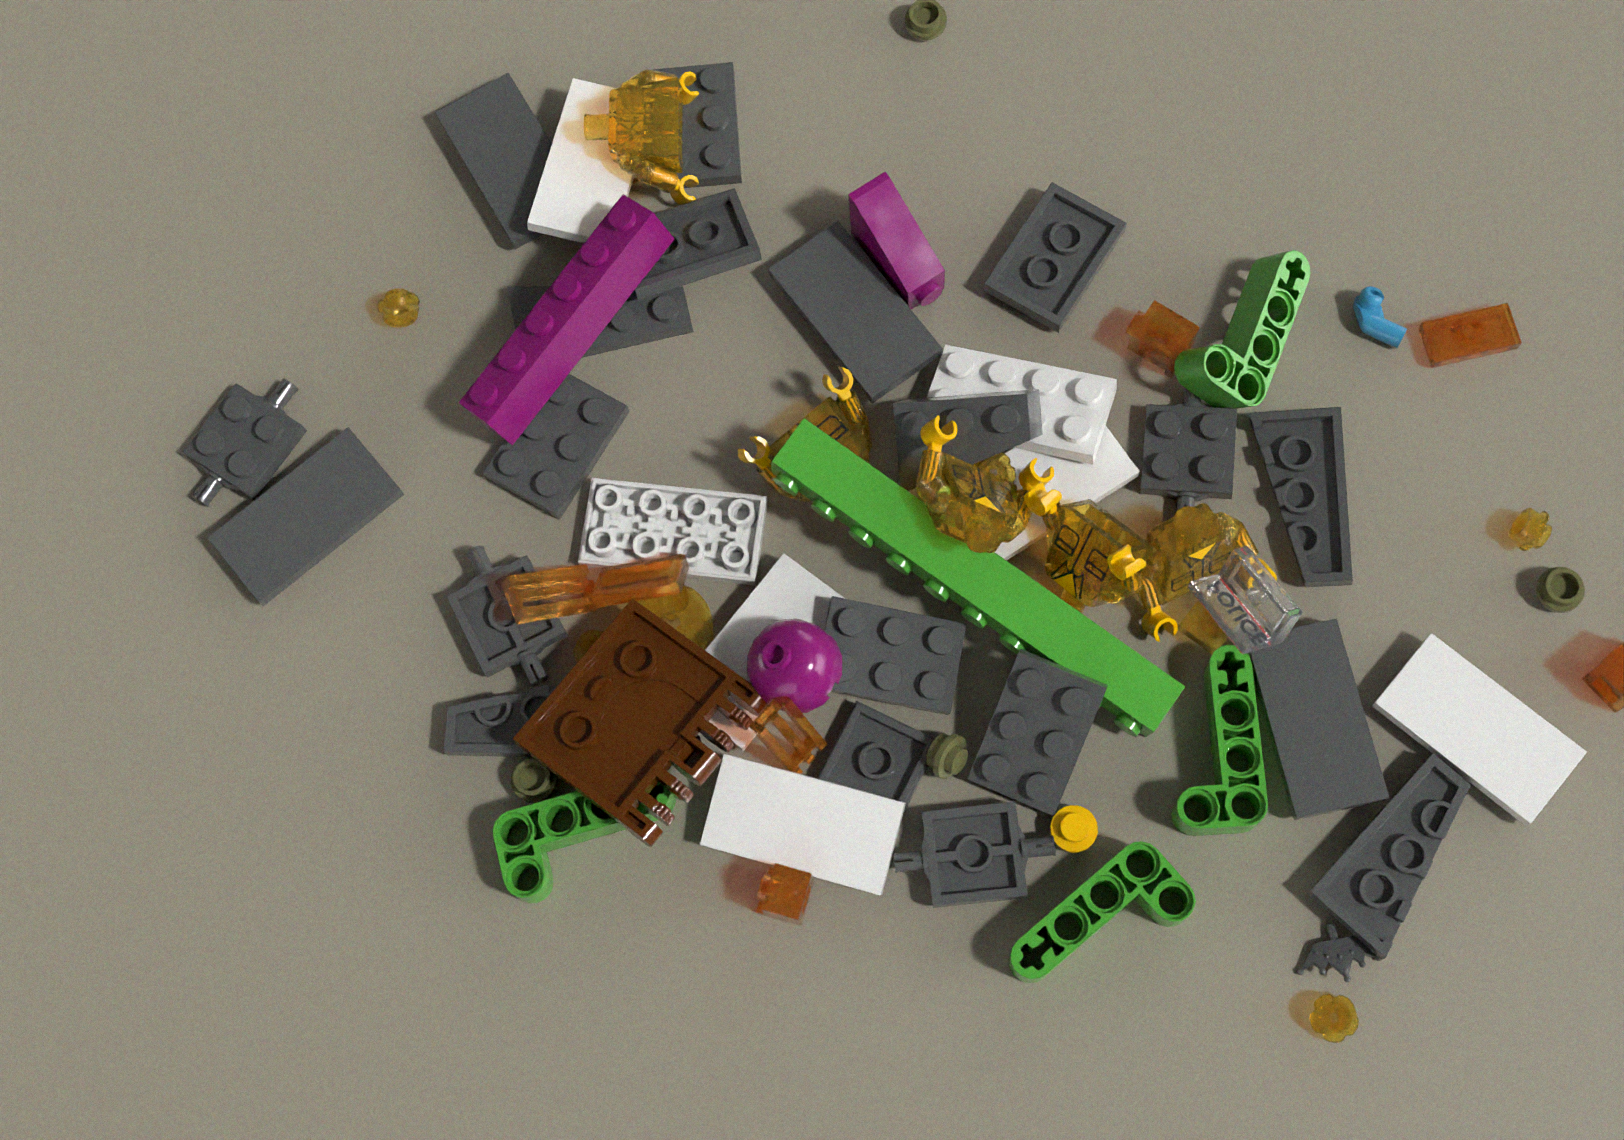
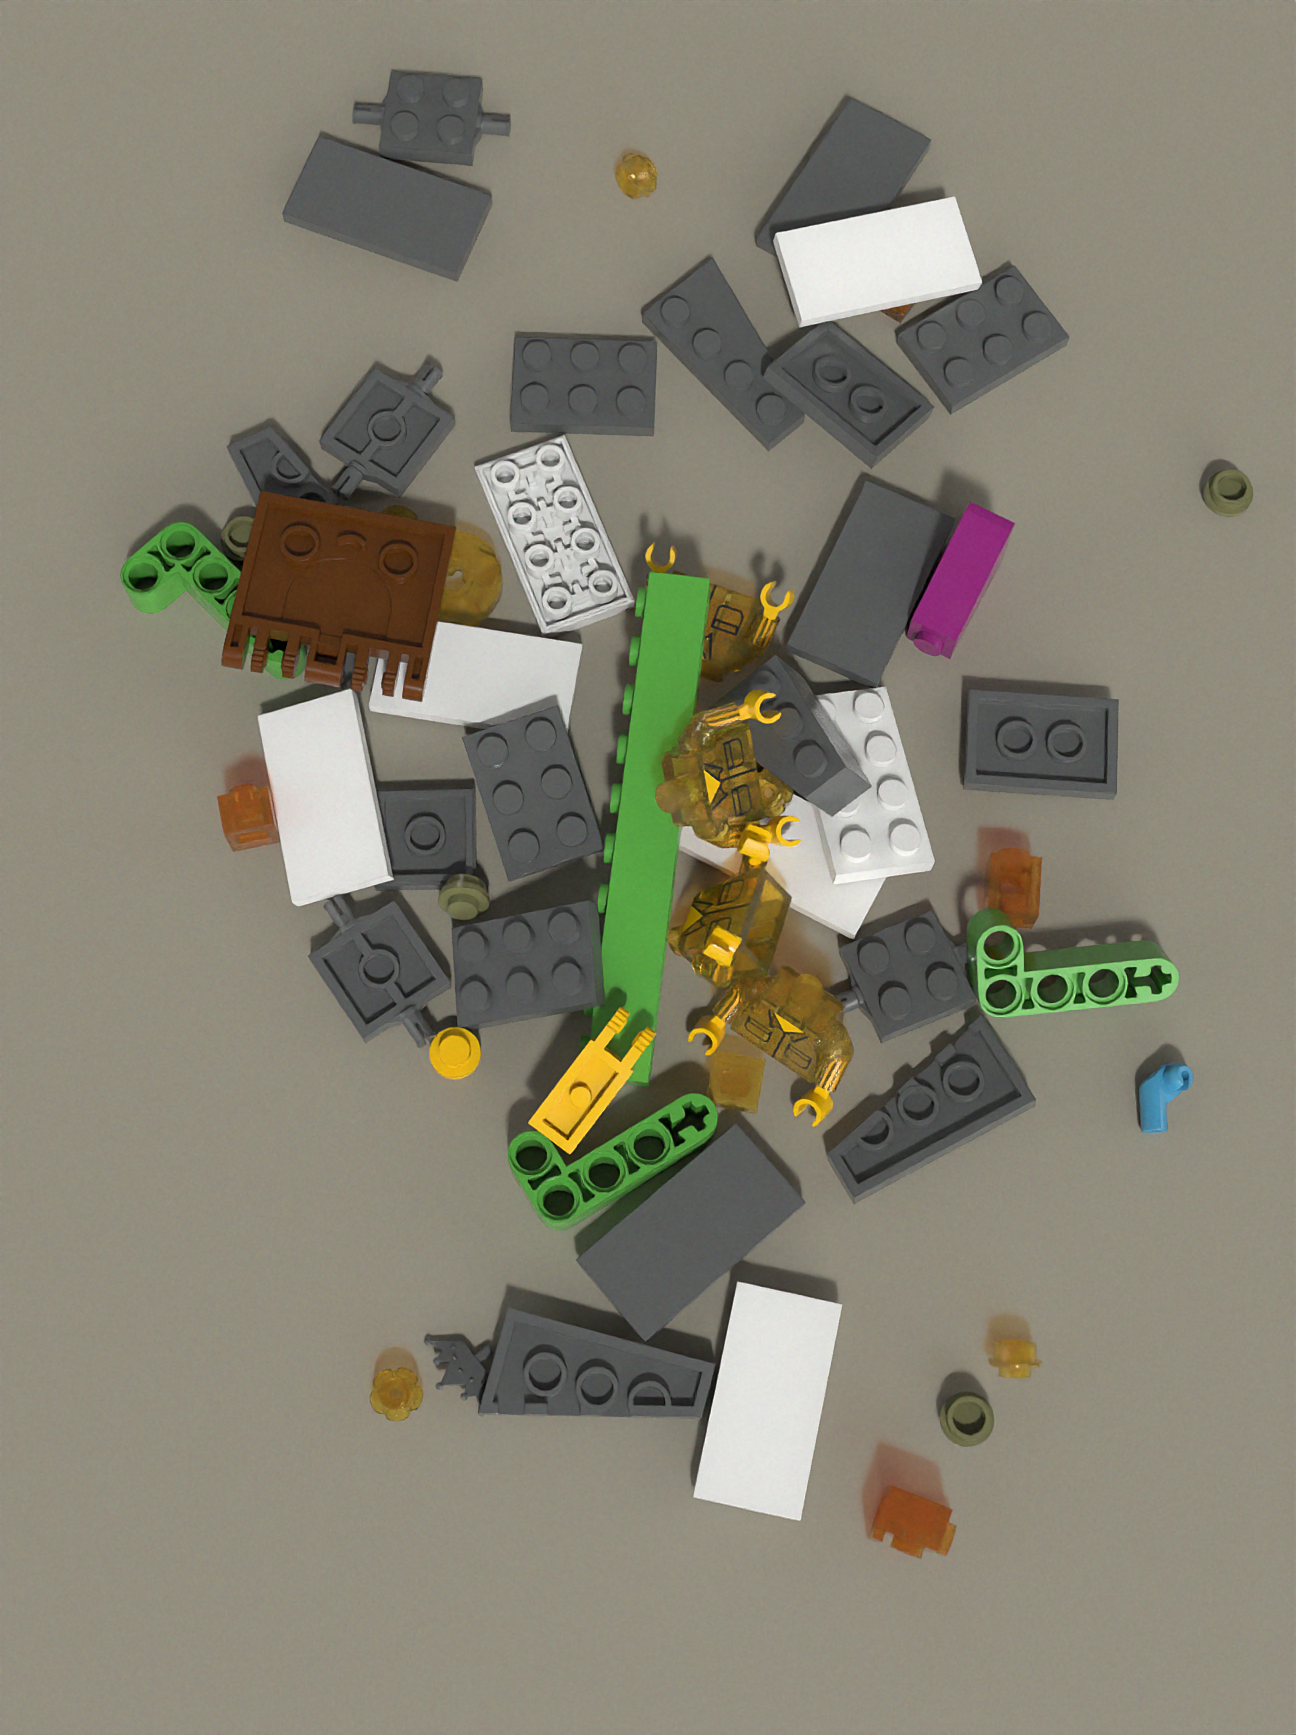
camera: 50 degrees right, 0 degrees up
(567, 319) = (698, 321): magenta brick -> none
(574, 574) = (437, 442): clear orange tile -> none
(640, 580) = (482, 529): clear orange tile -> none
(647, 129) = (936, 286): clear yellow torso -> none
(794, 662) = (467, 703): magenta cylinder -> none
(802, 749) = (397, 763): clear orange tile -> none
(1091, 918) = (372, 1110): bright green beam -> none
(1167, 728) = (588, 1085): none -> yellow hinge
(1247, 602) = (766, 1101): clear panel -> none
(1469, 335) = (1199, 1200): clear orange plate -> none

